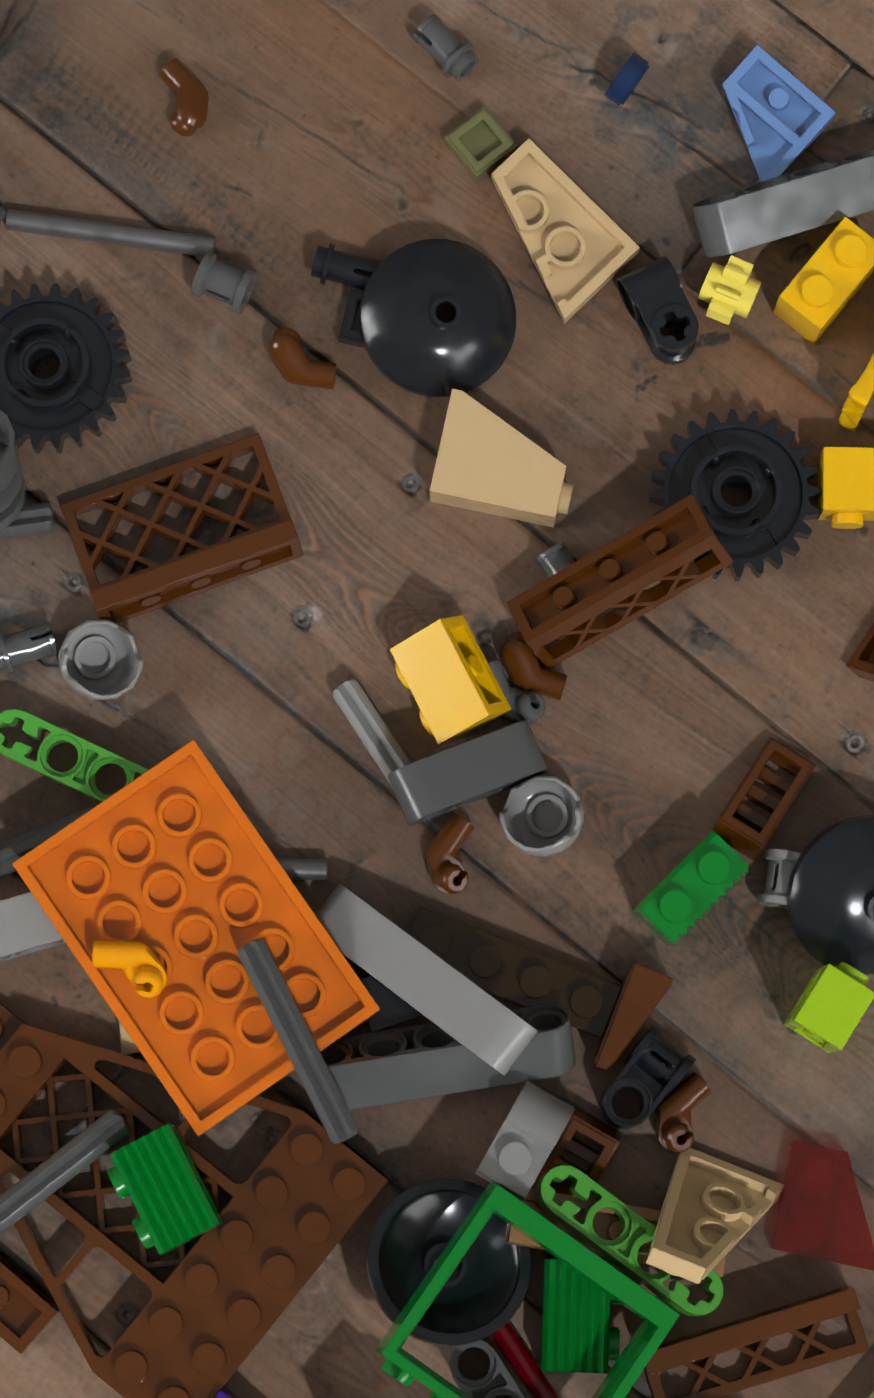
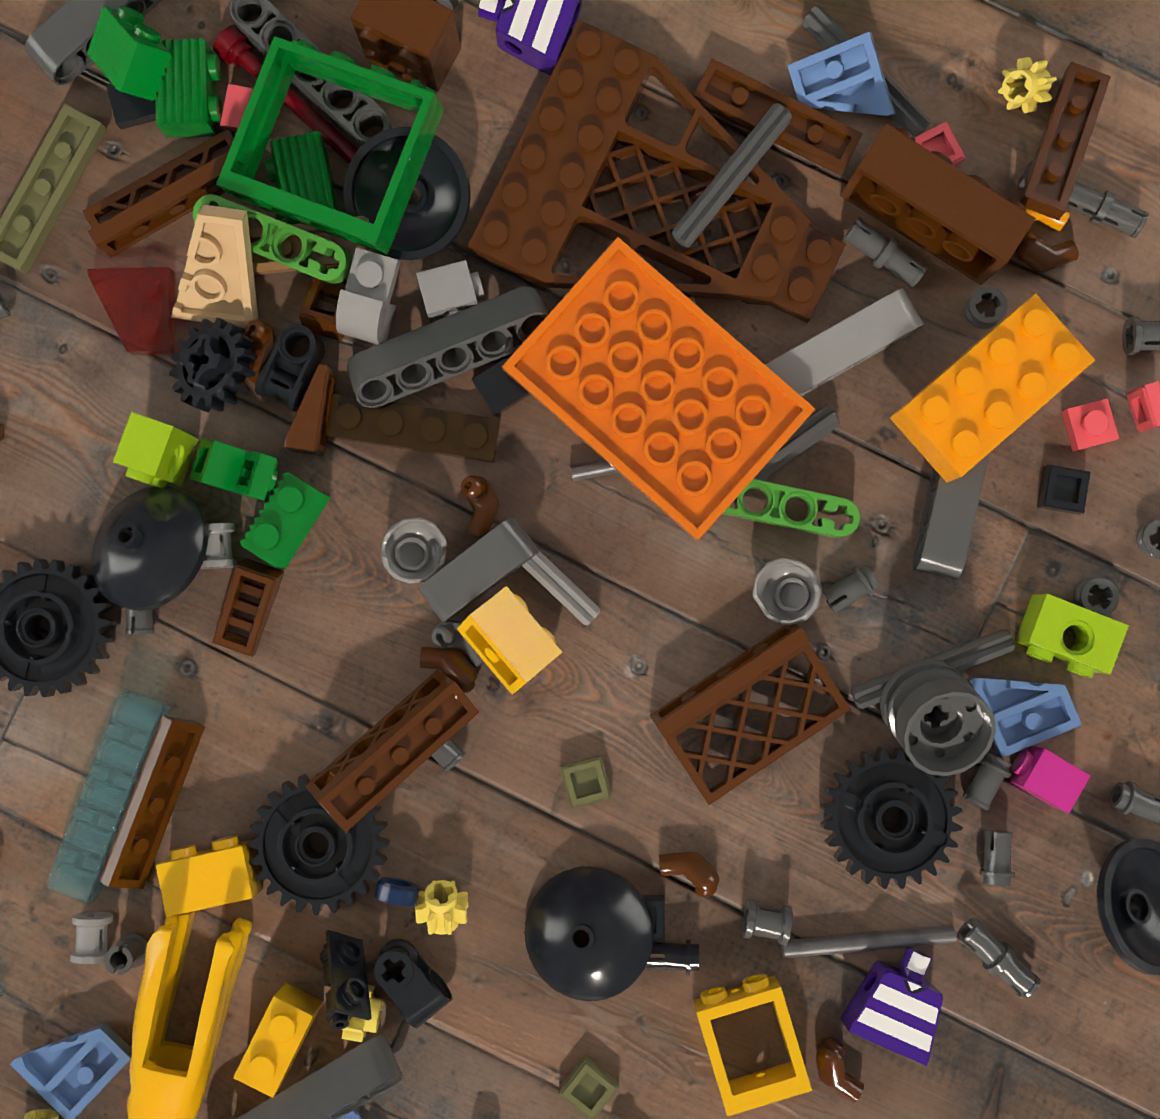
camera: 165 degrees right, 5 degrees up
(97, 152) = (897, 1007): none -> dark purple torso
(135, 960) = (698, 354): light orange arm -> none
(164, 1190) = (633, 192): green brick -> none
(275, 100) = (762, 1086): none -> yellow window
(297, 1041) = (558, 324): dark grey axle -> none
(399, 494) = (585, 781): none -> olive tile
(422, 1130) = (449, 289): none -> light grey brick
(424, 980) = (471, 396): light grey beam -> none
(496, 468) = (512, 820): tan slope -> none
(561, 228) = (506, 1032): tan wing -> none
(604, 386) = (442, 907): none -> light yellow gear
(653, 416) = (397, 891): none -> dark blue tile
(716, 1114) = (213, 365): none -> black gear
(734, 347) = (347, 976): none -> black hinge
(739, 965) = (234, 469): none -> green brick

